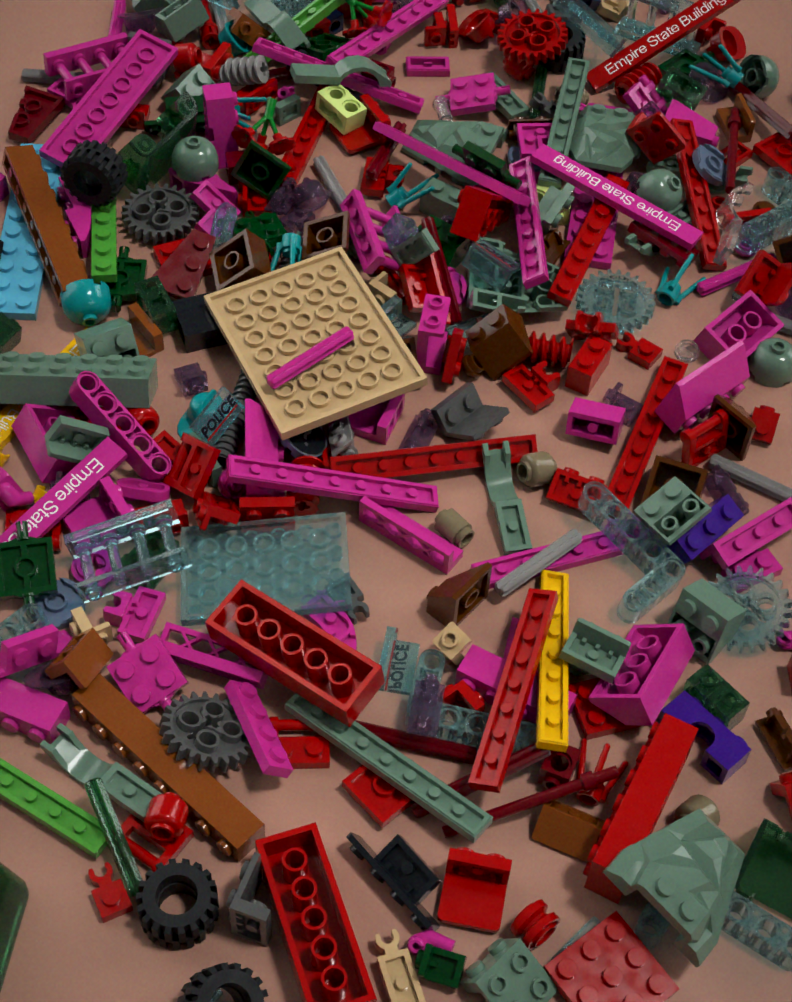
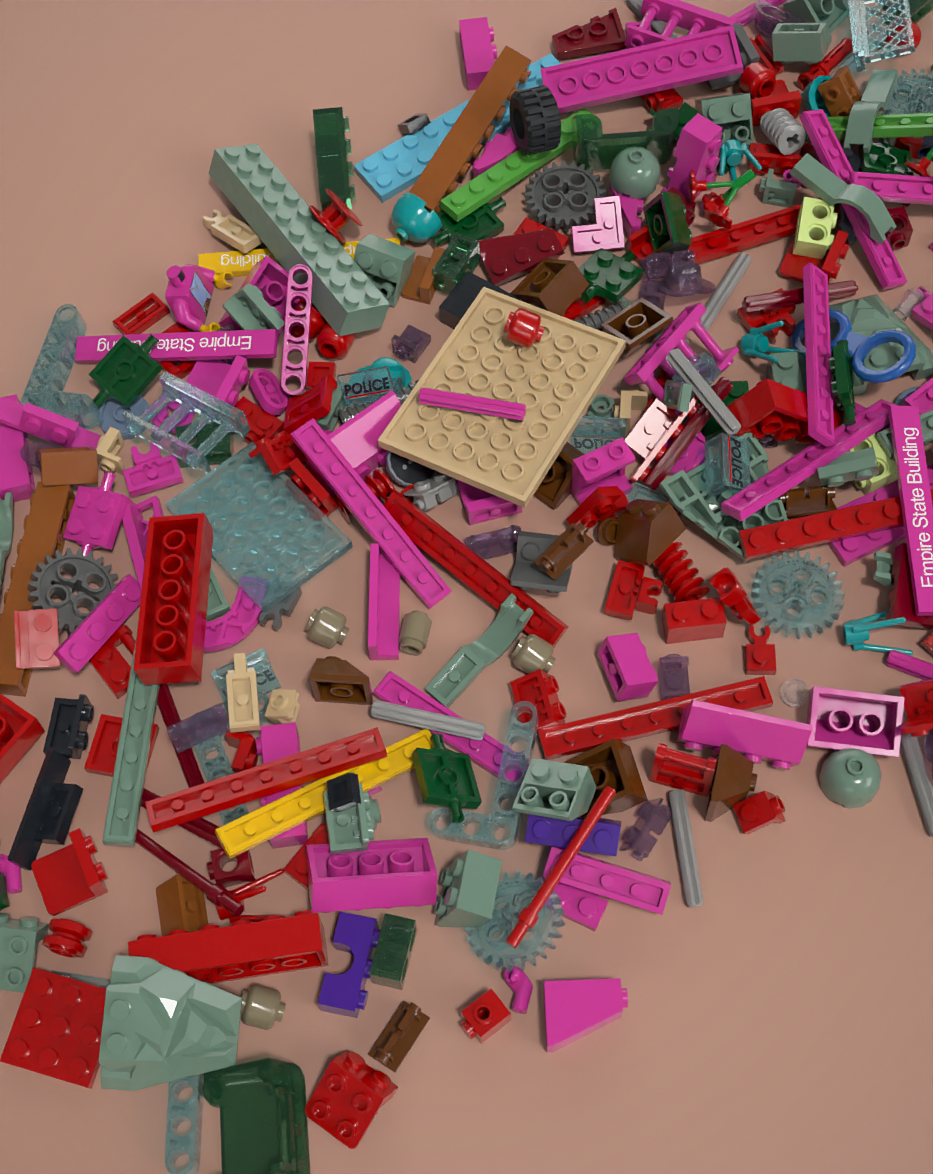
camera: 60 degrees right, 10 degrees up
(32, 337) = (335, 215): none -> red piece
(224, 223) = (594, 241): clear light blue plate -> none
(237, 779) = (36, 638): none -> plate
(275, 288) = (523, 328): none -> red head
(291, 248) = (600, 305): teal plant -> none
(333, 812) = (69, 726): none -> black bracket
(399, 579) = (327, 627): none -> dark tan head
(424, 659) = (242, 696): none -> tan hinge
(437, 231) = (703, 392): none -> light grey axle
(446, 147) = (861, 345): none -> blue bar
(477, 389) = (564, 551): none -> reddish brown hinge
(578, 633) = (343, 792): none -> black tile
(601, 577) = (446, 778): none -> dark green plate
(759, 588) = (528, 917): none -> red bar

